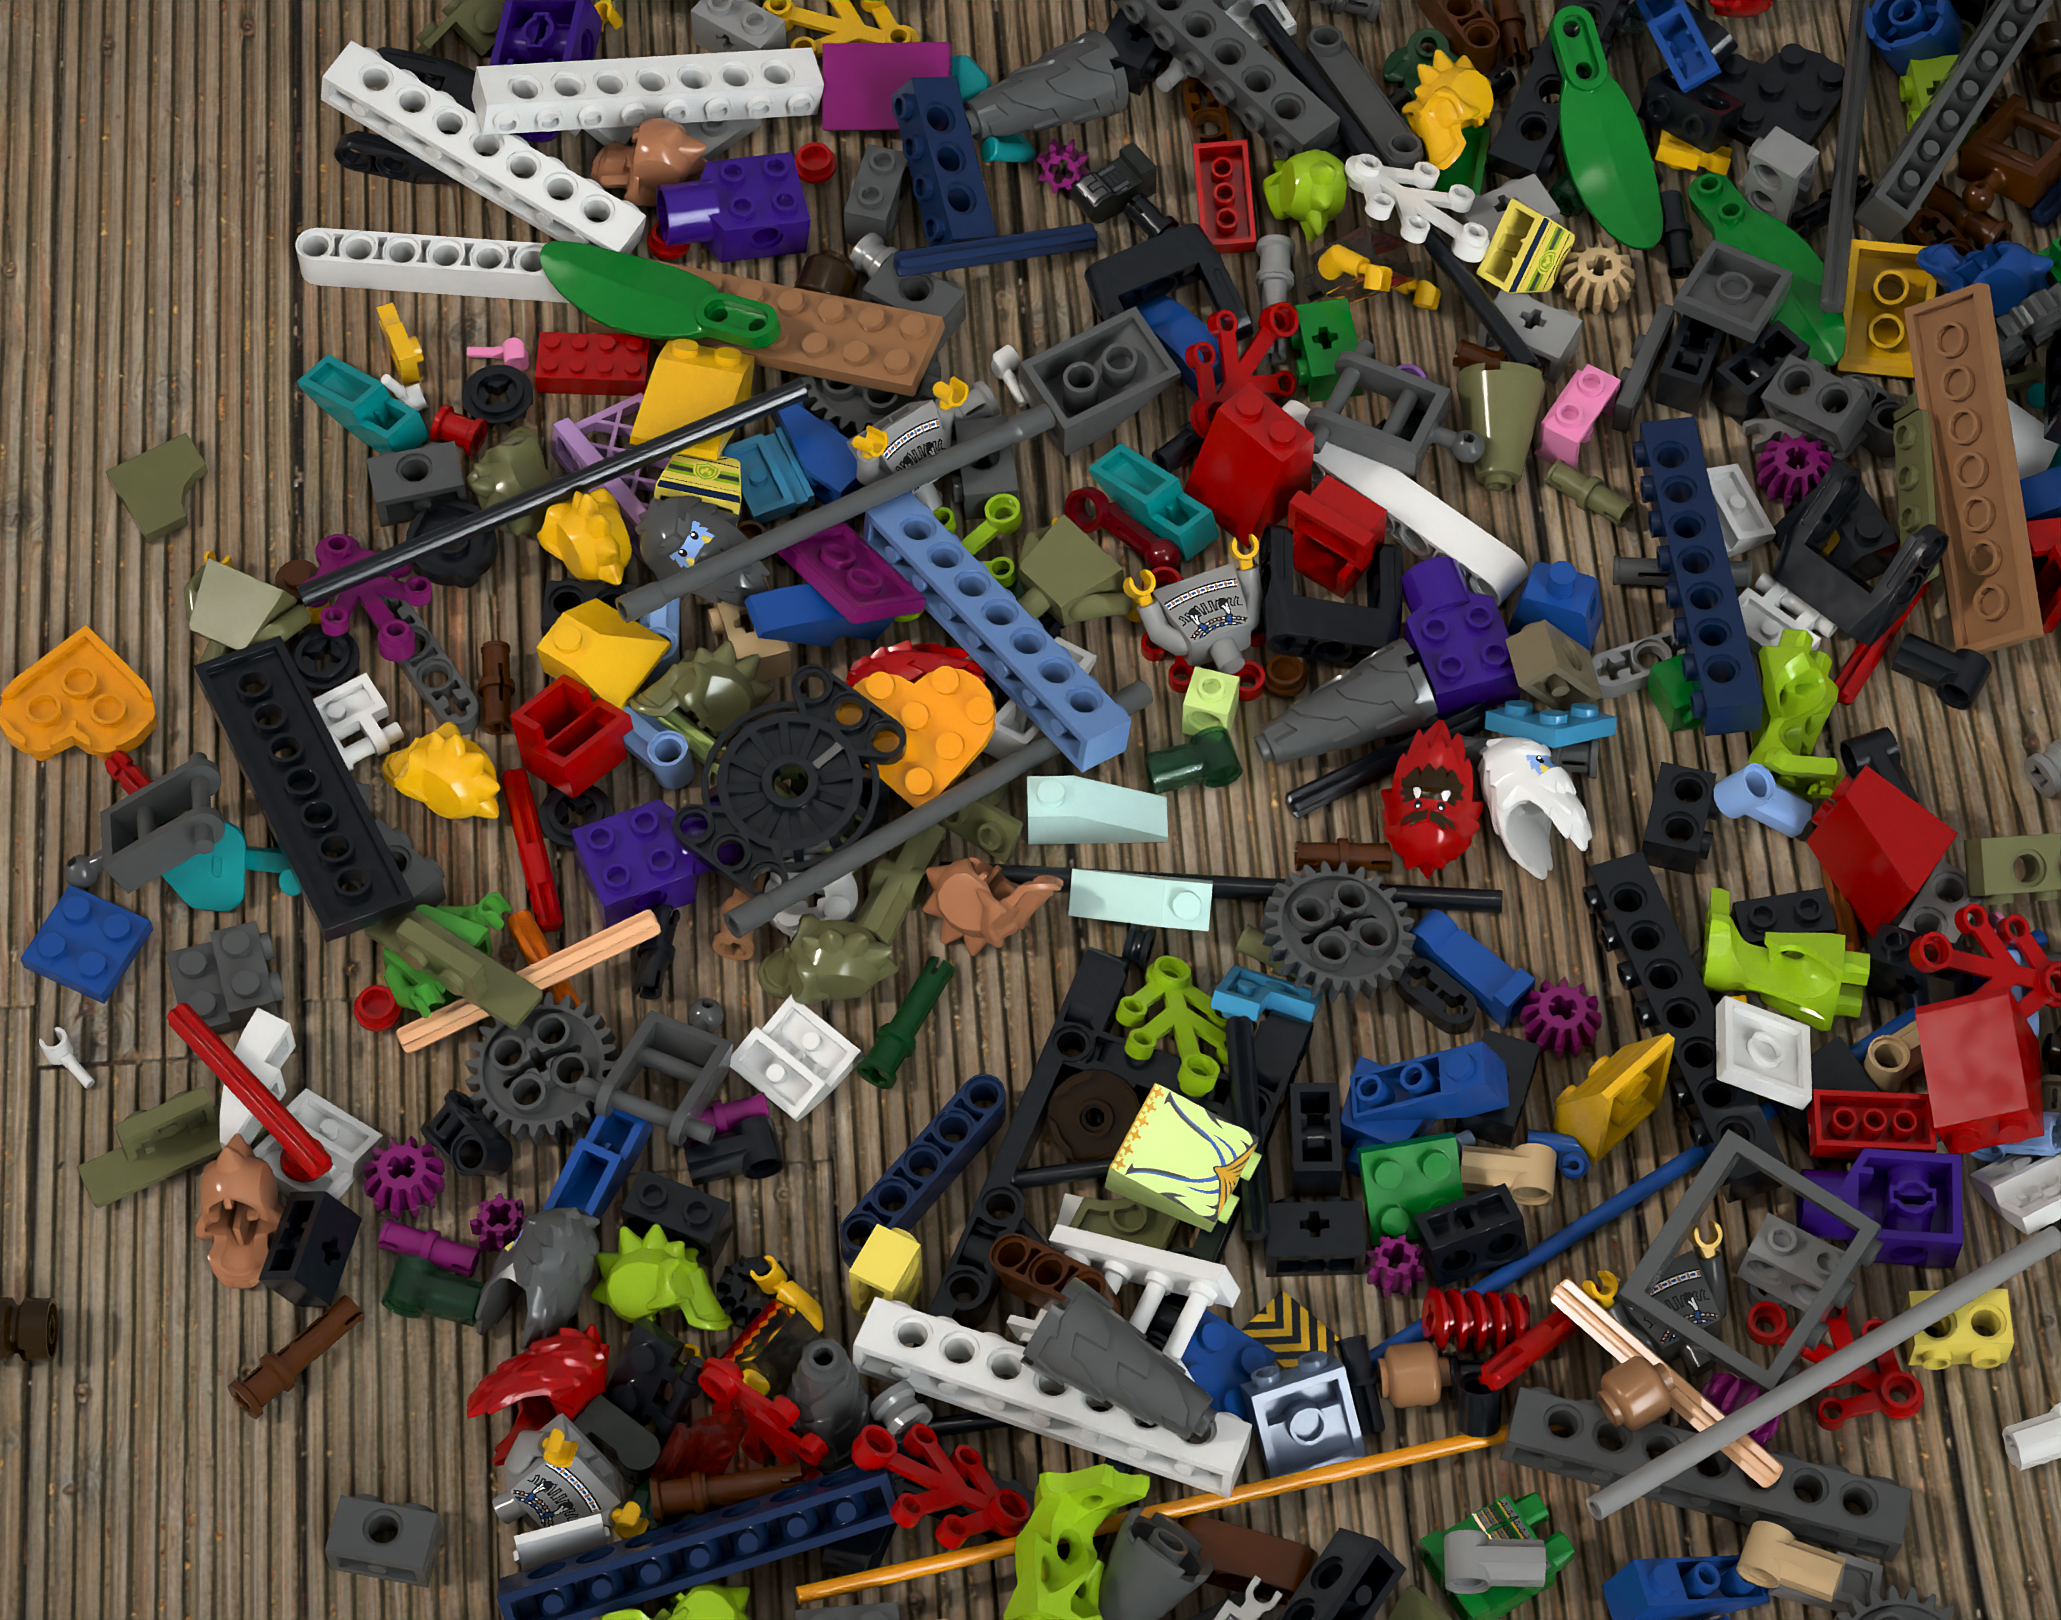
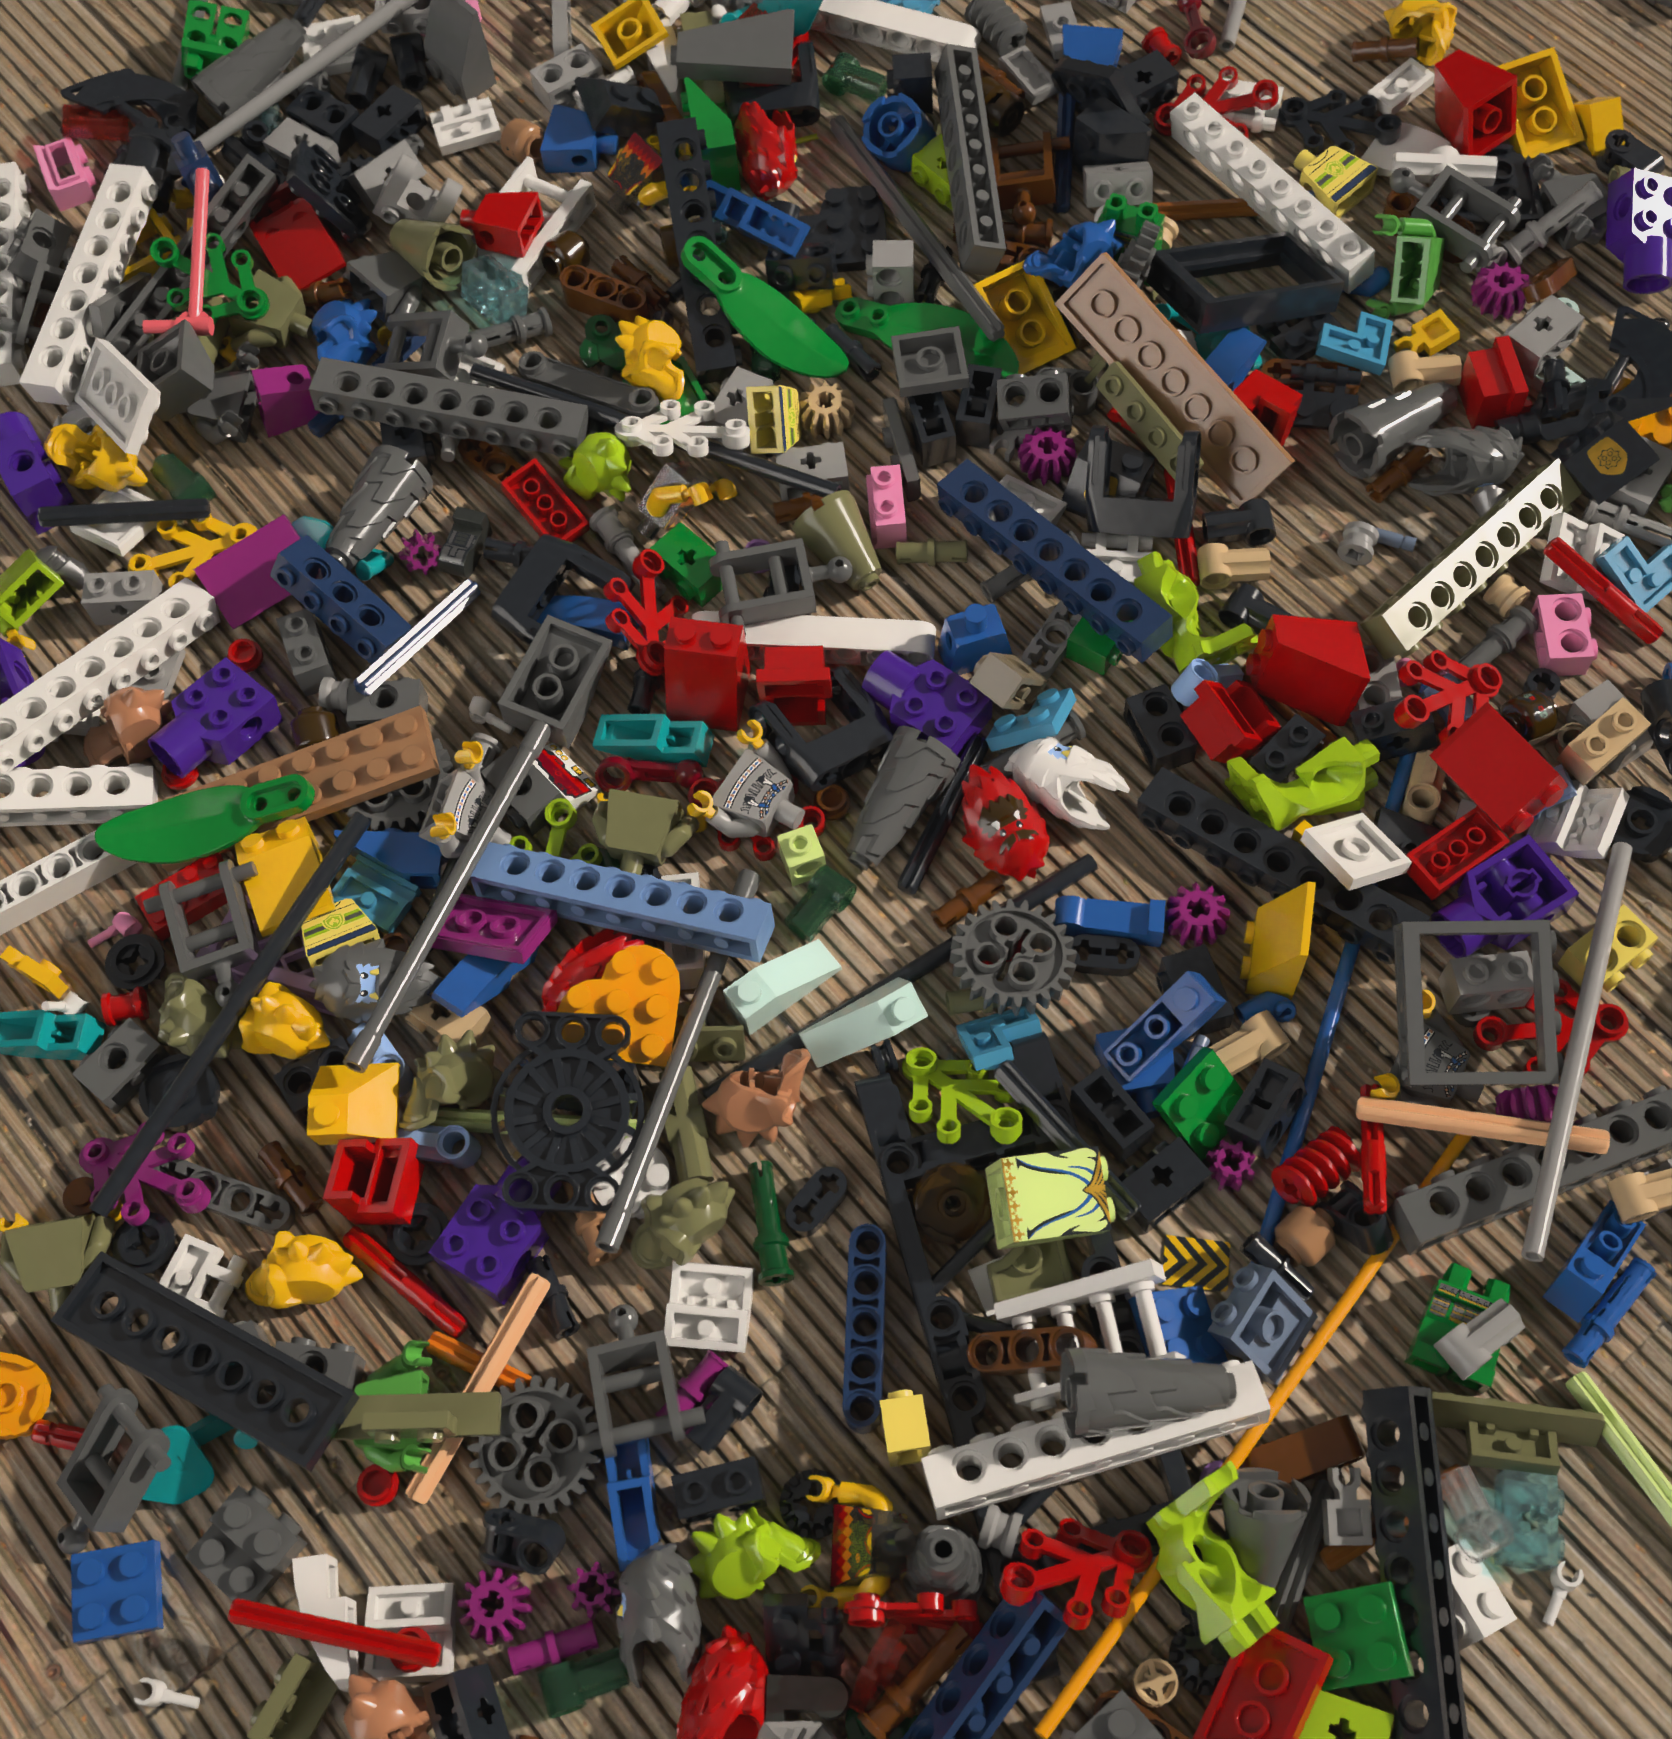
camera: 30 degrees left, 5 degrees up
(616, 420) = (184, 944): none -> dark grey piece
(969, 1034) = (809, 1195): none -> black beam
(1038, 480) = (566, 776): none -> slope
(1635, 1393) = (1478, 1149): medium nougat head -> none
(1749, 849) = (1229, 720): none -> red plate
(1887, 699) = (1221, 565): none -> tan piece

